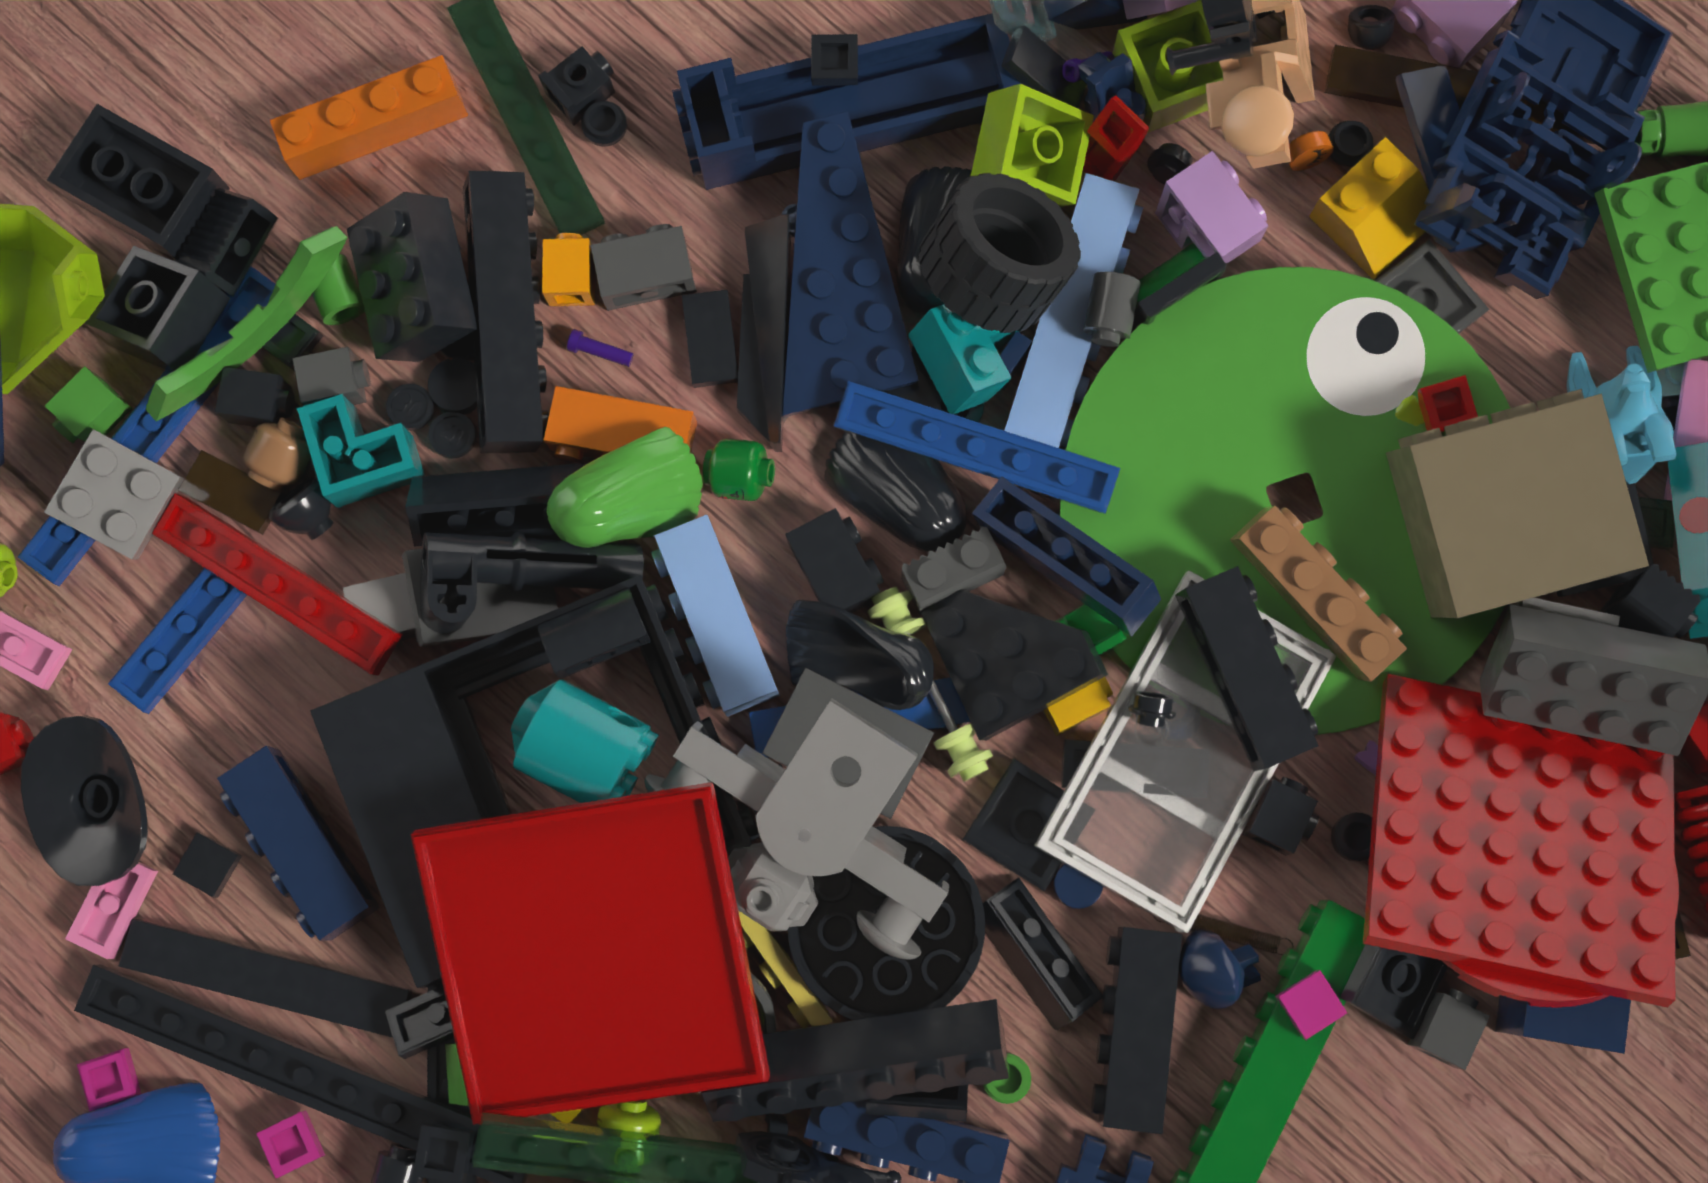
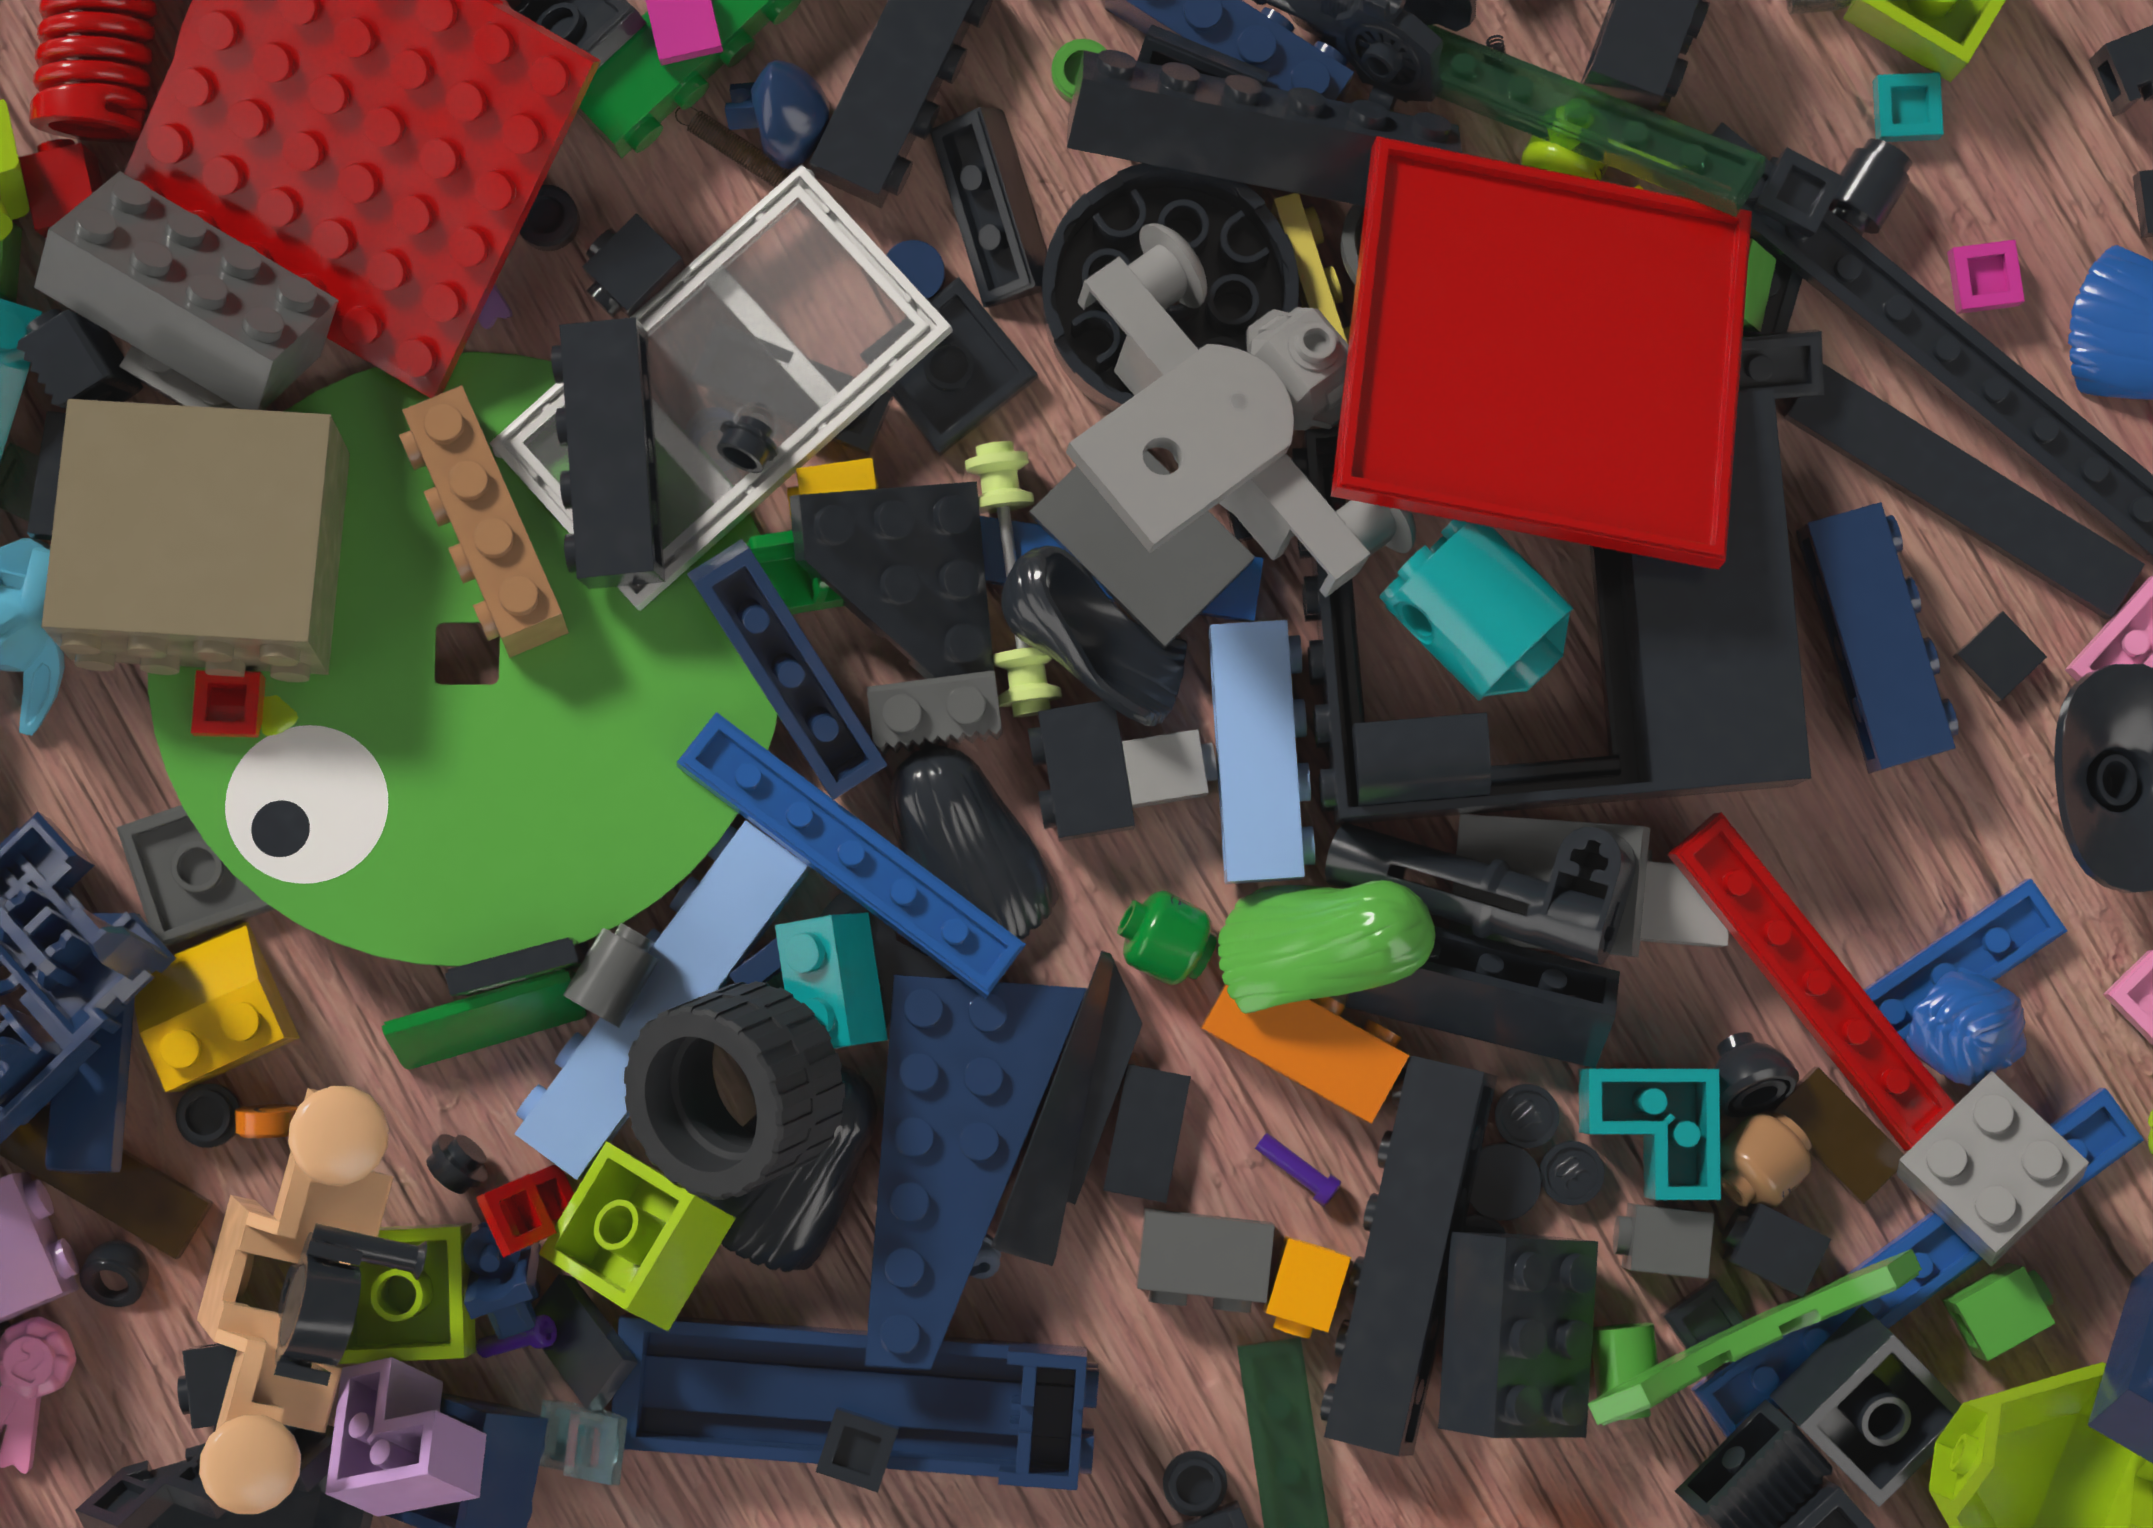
camera: 170 degrees left, 5 degrees up
(158, 588) = (1968, 1027): none -> blue hair
(775, 586) = (1168, 768): none -> light grey brick
(1211, 210) = (430, 1063): lavender brick -> none

